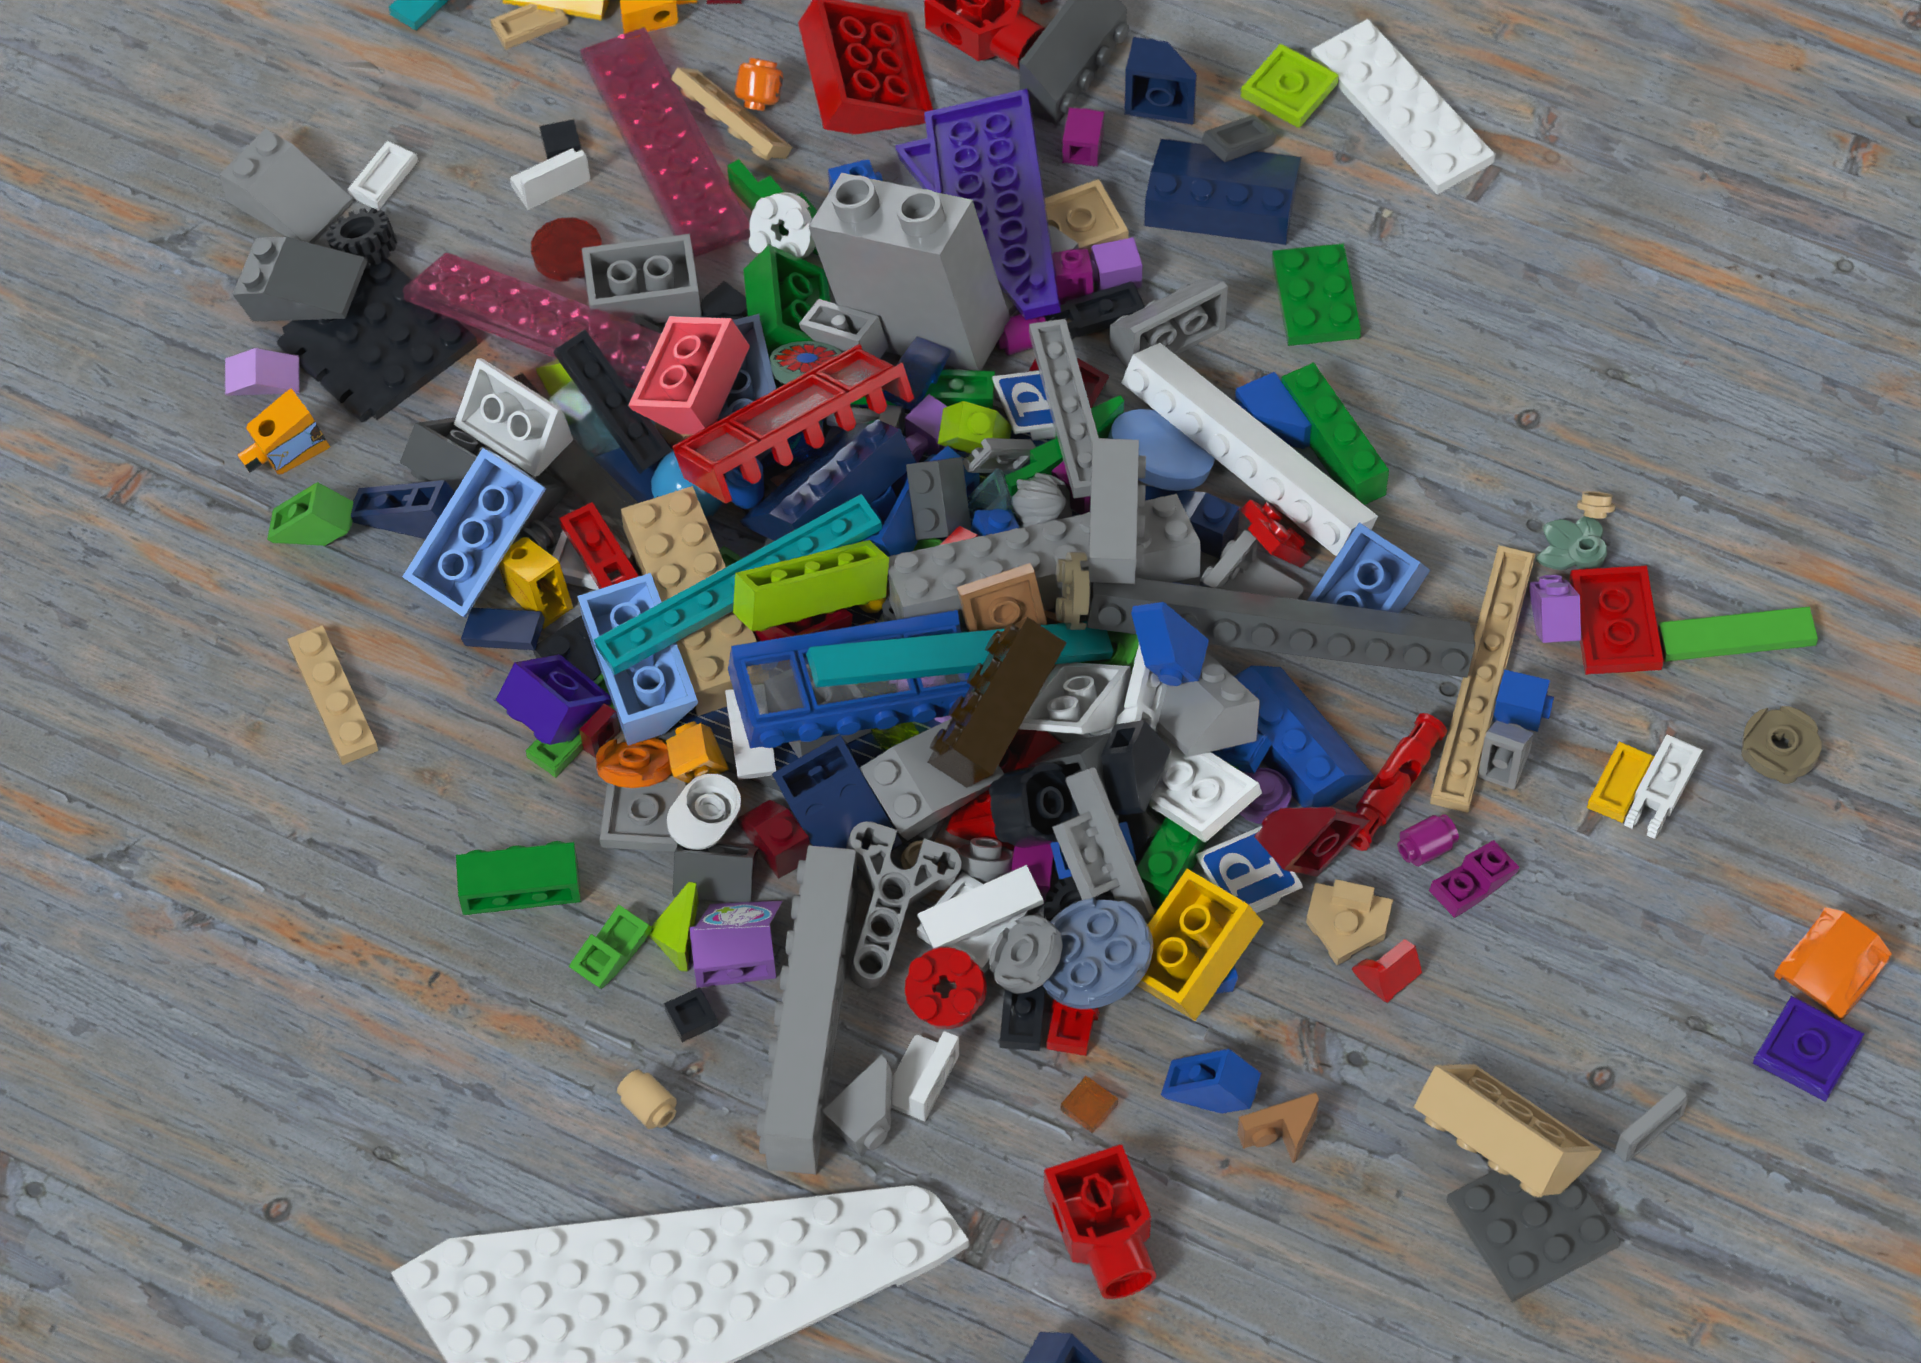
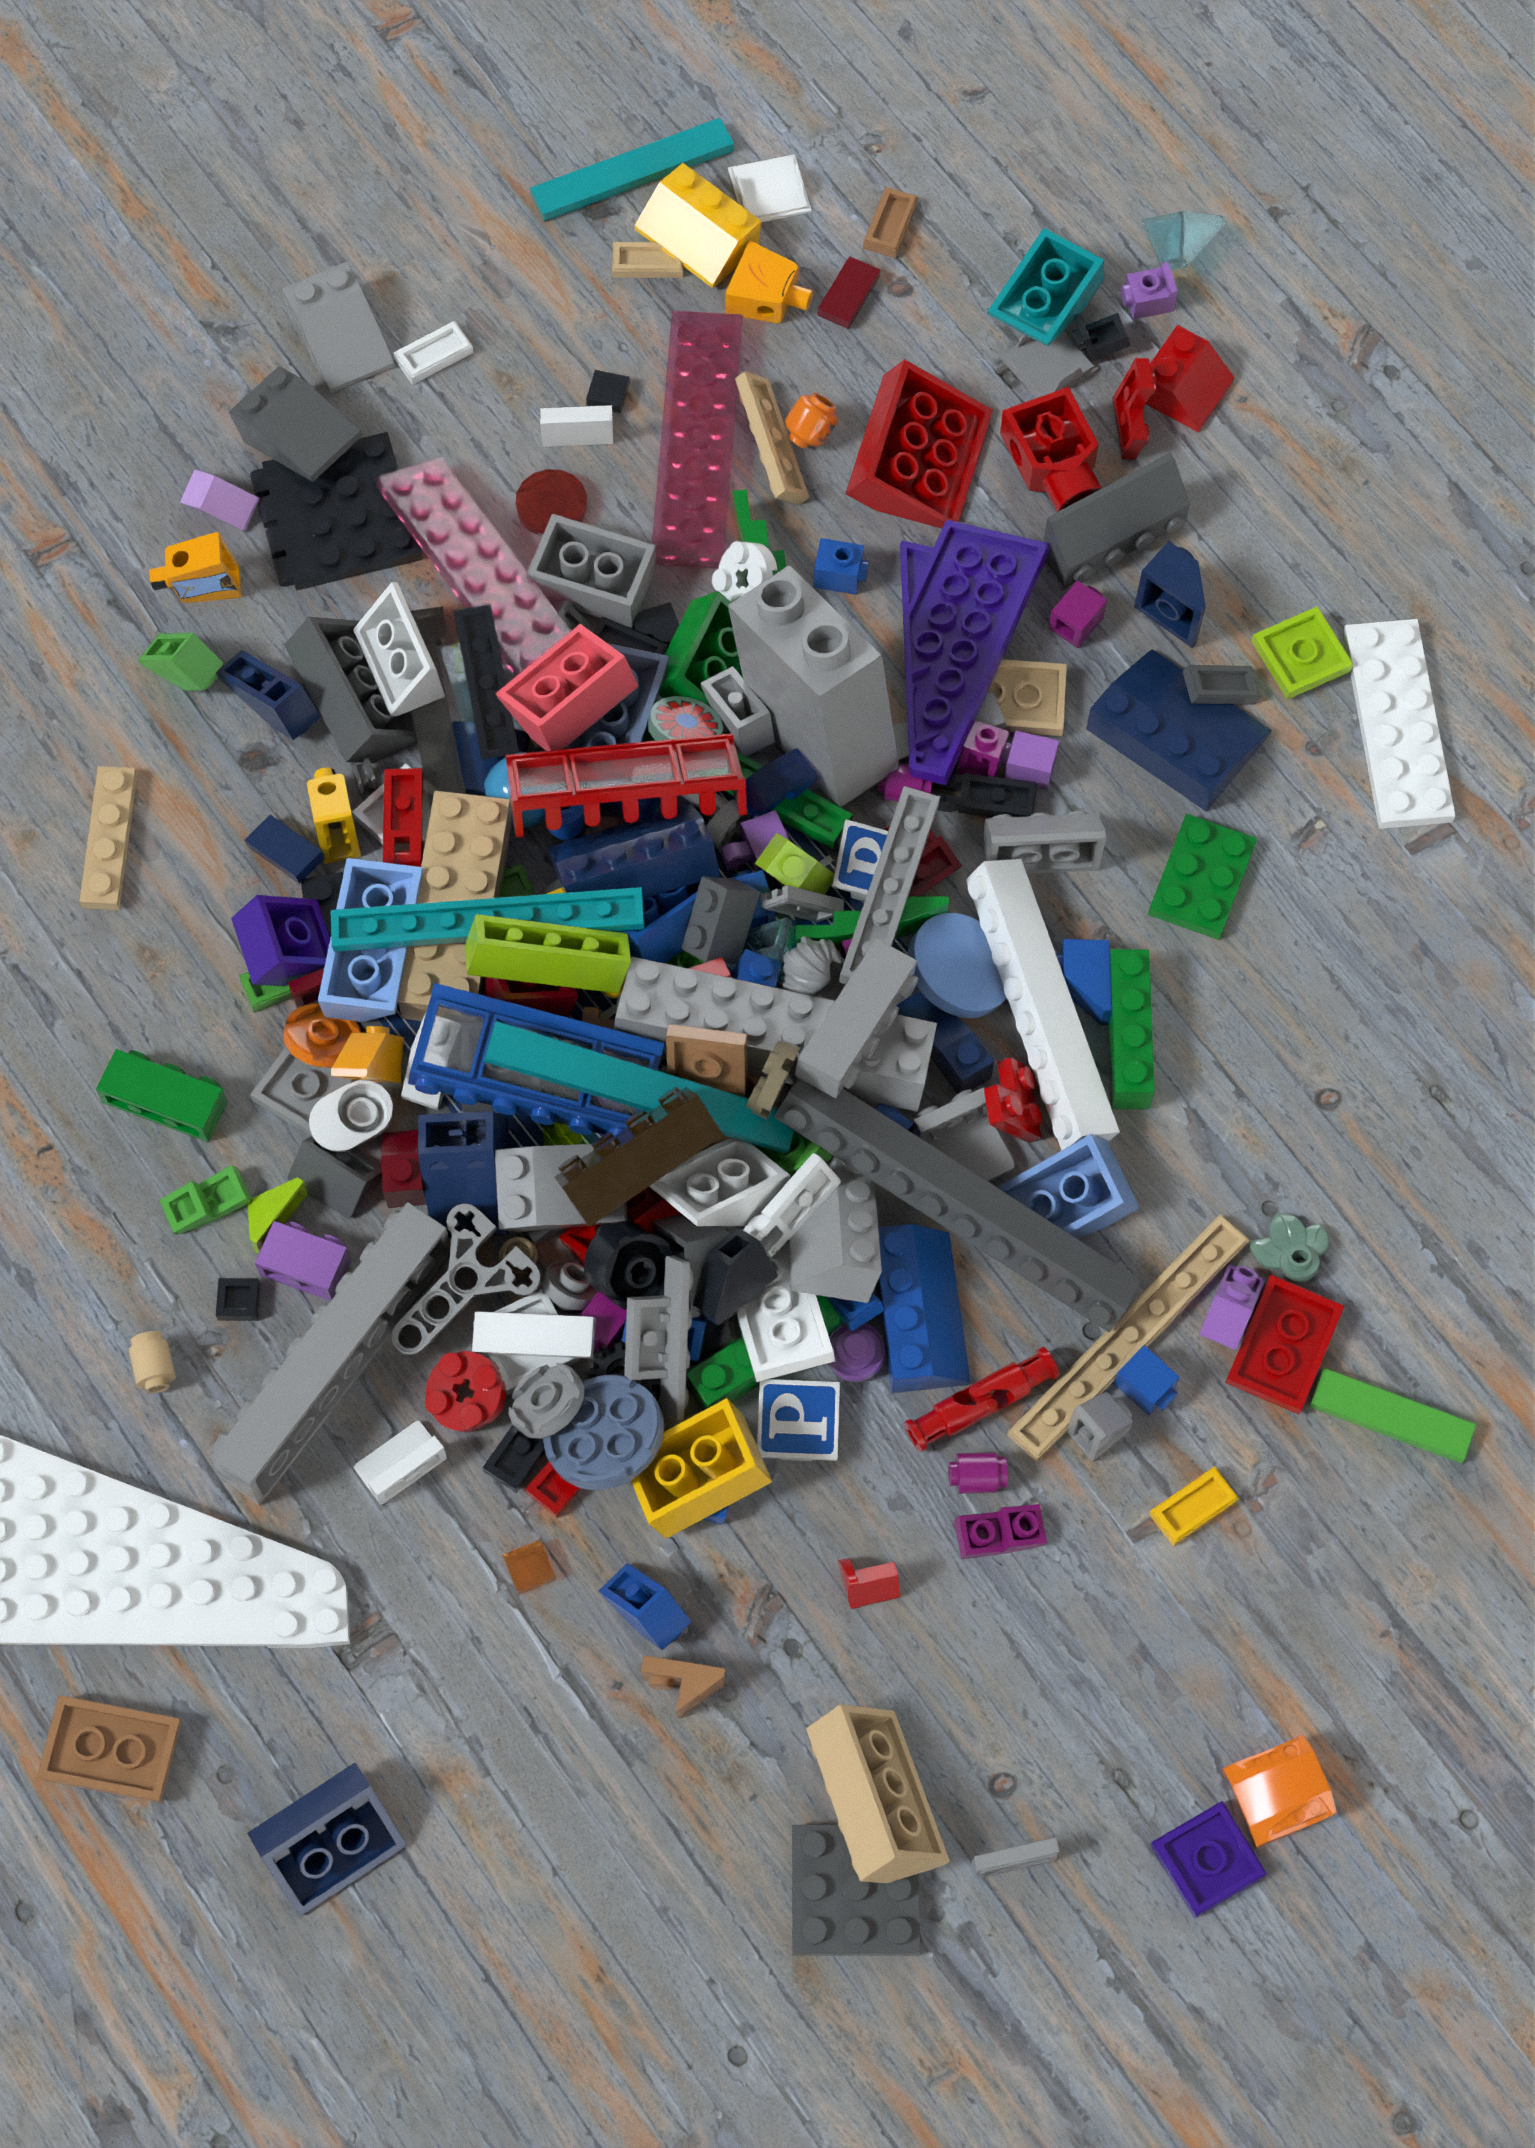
camera: 25 degrees right, 10 degrees up
(363, 235) = (375, 408): black tyre -> none
(474, 532) = (299, 747): light blue slope -> none
(738, 915) = (324, 1230): sticker -> none
(864, 1108) = (329, 1470): light grey slope -> none
(1103, 1219) = (470, 1687): red brick -> none
(1169, 643) = (830, 1176): blue slope -> none
(1308, 837) = (861, 1419): dark red slope -> none
(1348, 918) = (862, 1511): tan plate -> none
(1596, 504) = (1336, 1219): tan plate -> none
(1664, 782) = (1231, 1529): white hinge -> none
(1779, 763) = (1372, 1525): dark tan plate -> none

